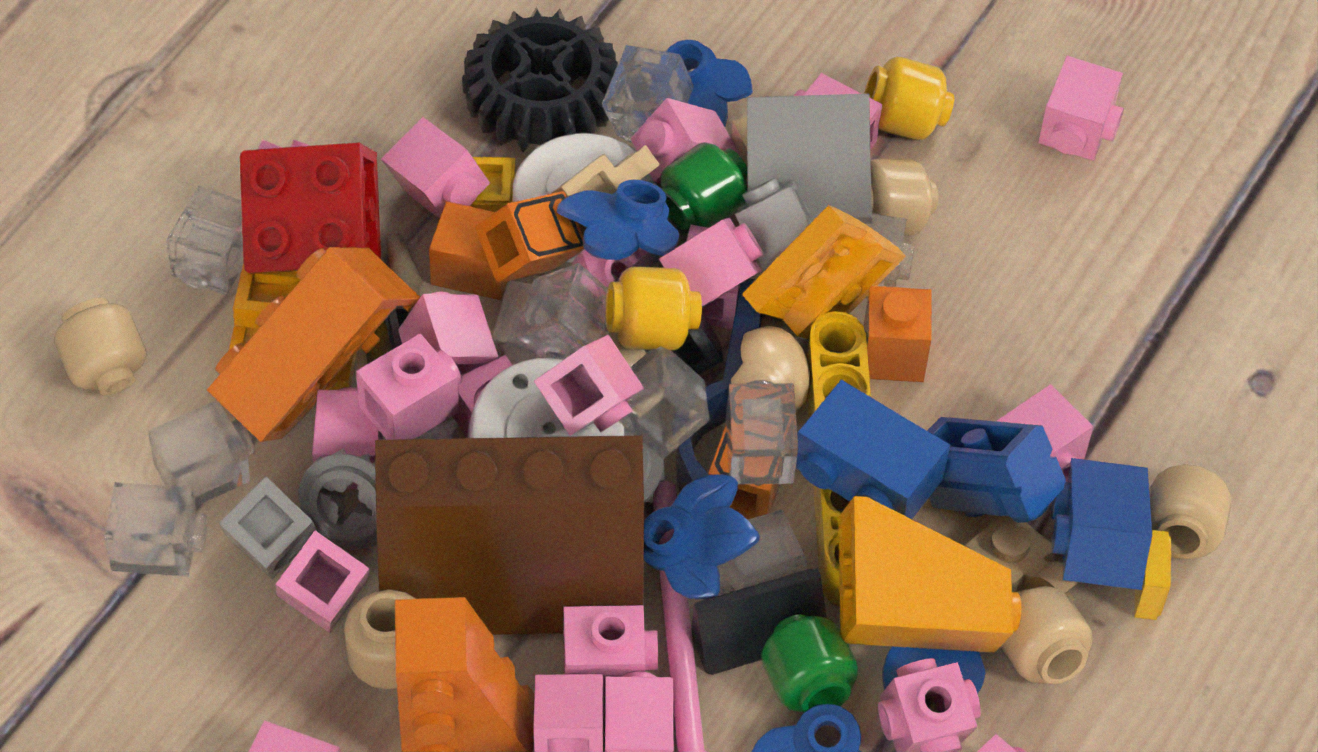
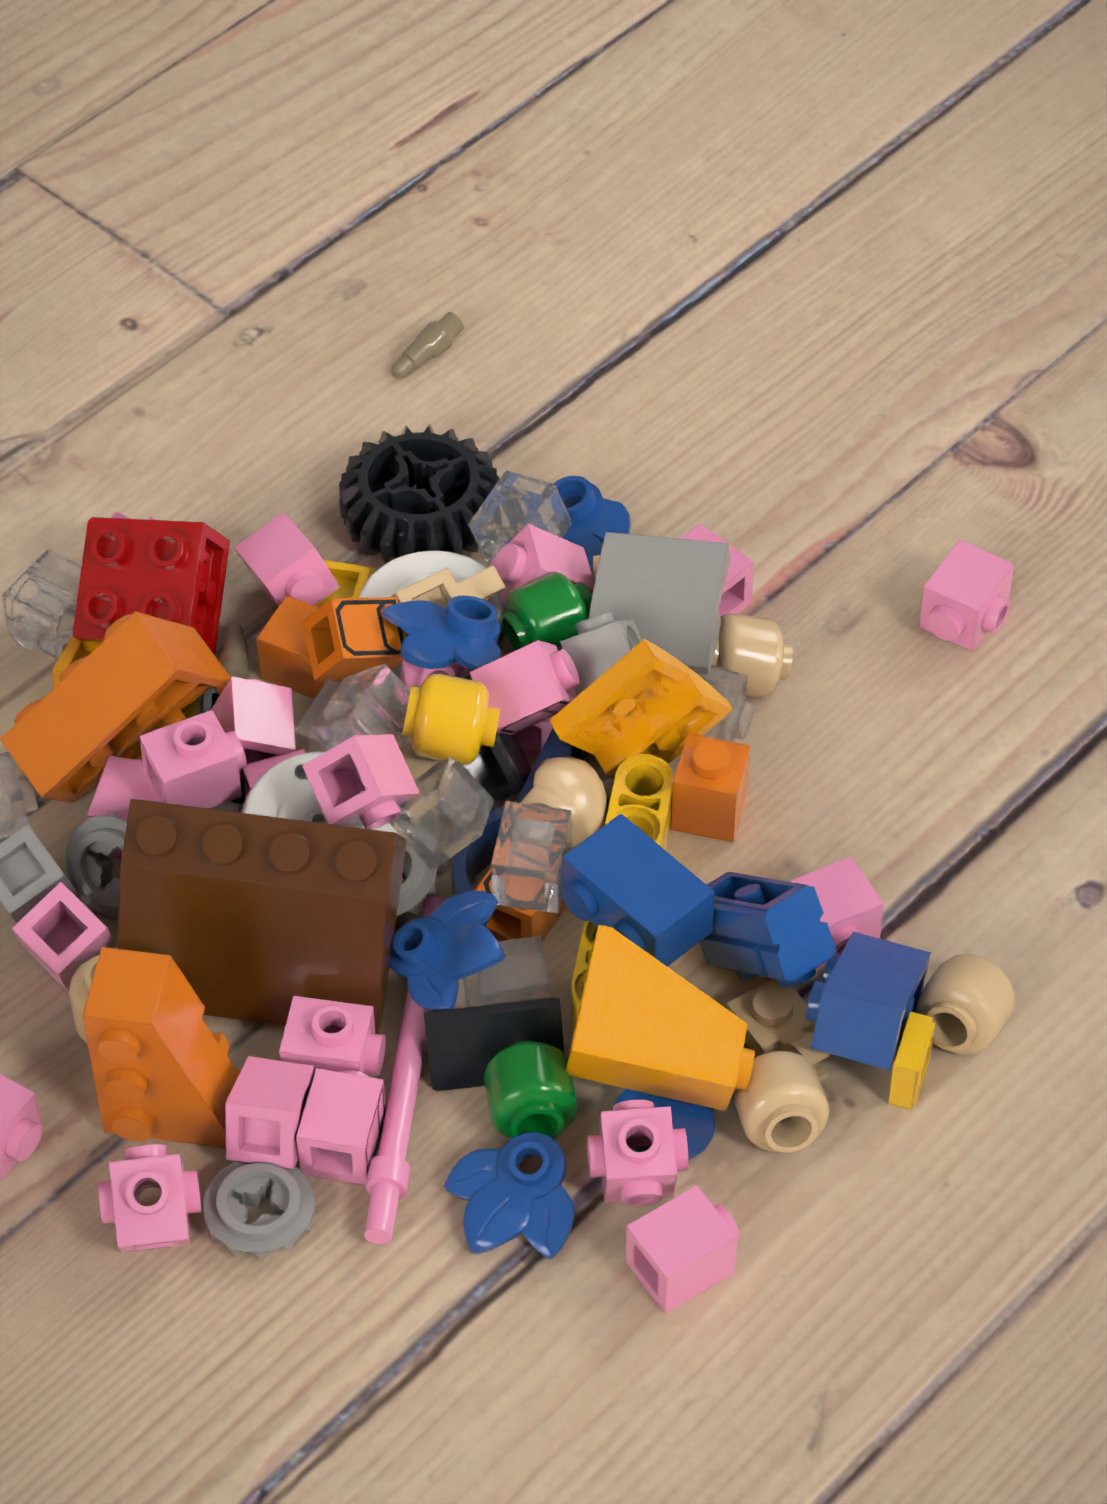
camera: 15 degrees right, 5 degrees down
(911, 97) = (789, 562): yellow head -> none

